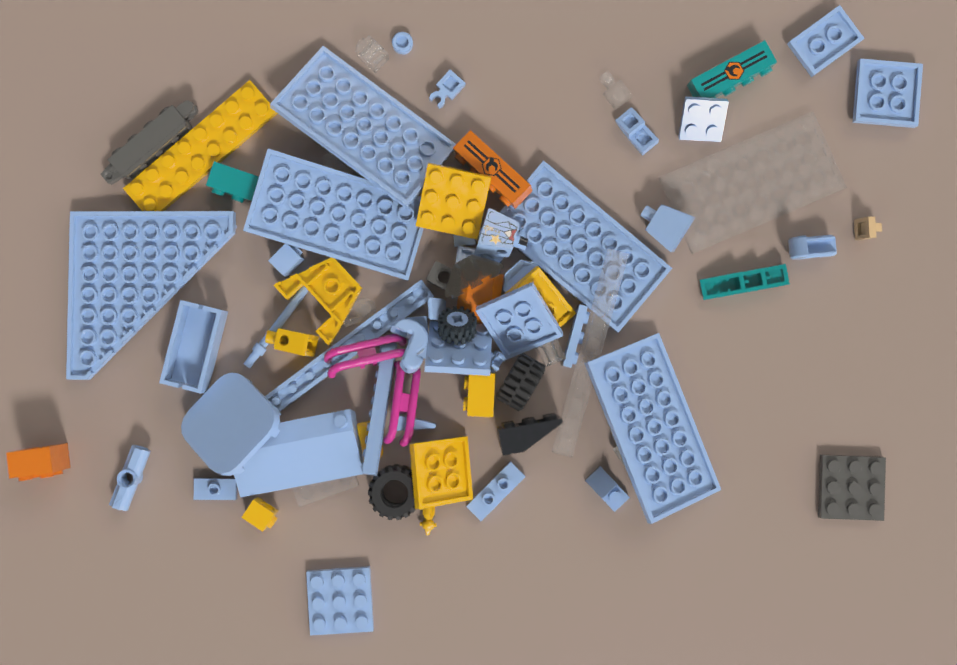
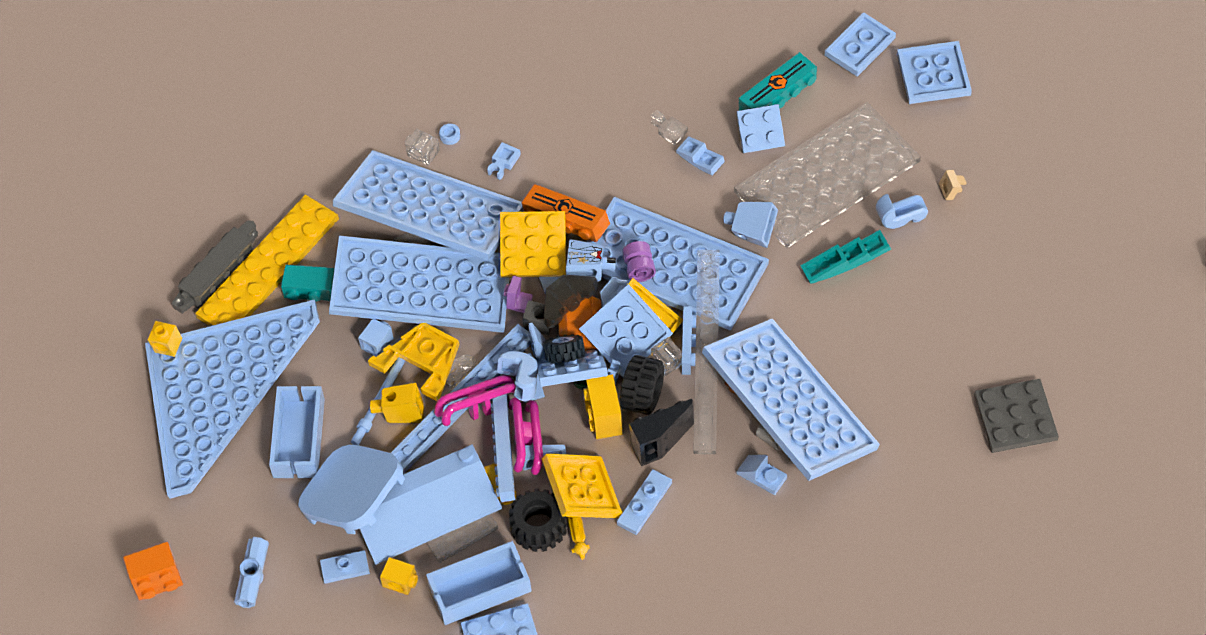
camera: 10 degrees left, 30 degrees down
(84, 218) = (165, 338): none -> yellow brick
(328, 543) = (479, 583): none -> light blue piece
(427, 250) = (515, 298): none -> medium lavender bracket
(549, 246) = (639, 261): none -> medium lavender wheel

